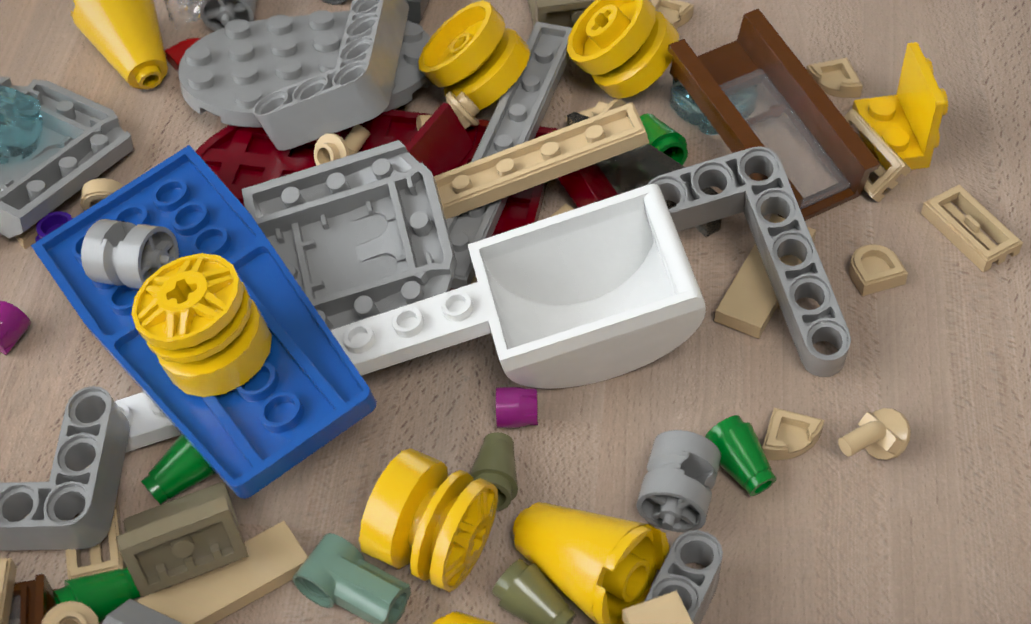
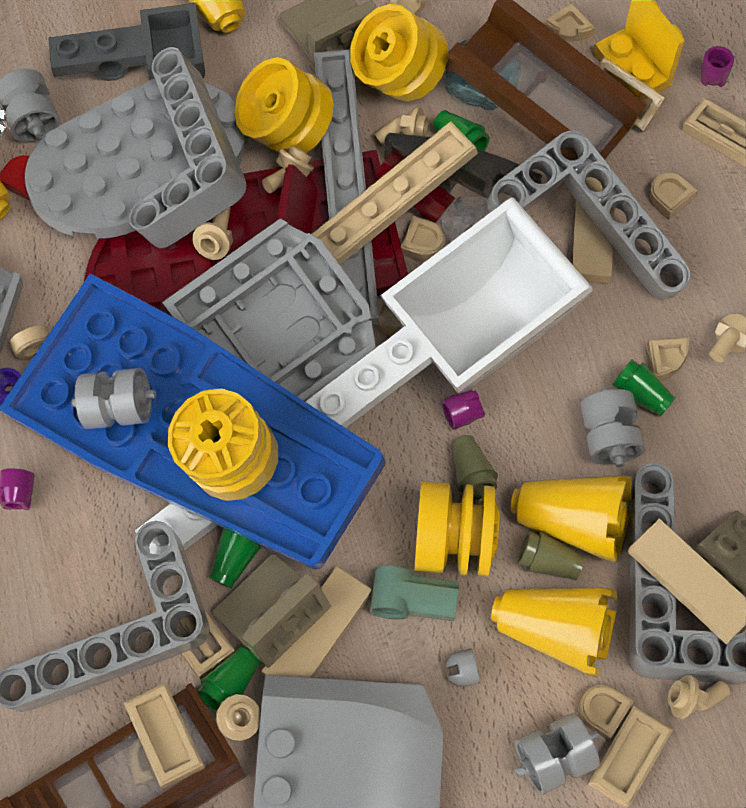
camera: 25 degrees left, 15 degrees up
(987, 157) = (716, 66): none -> magenta hose

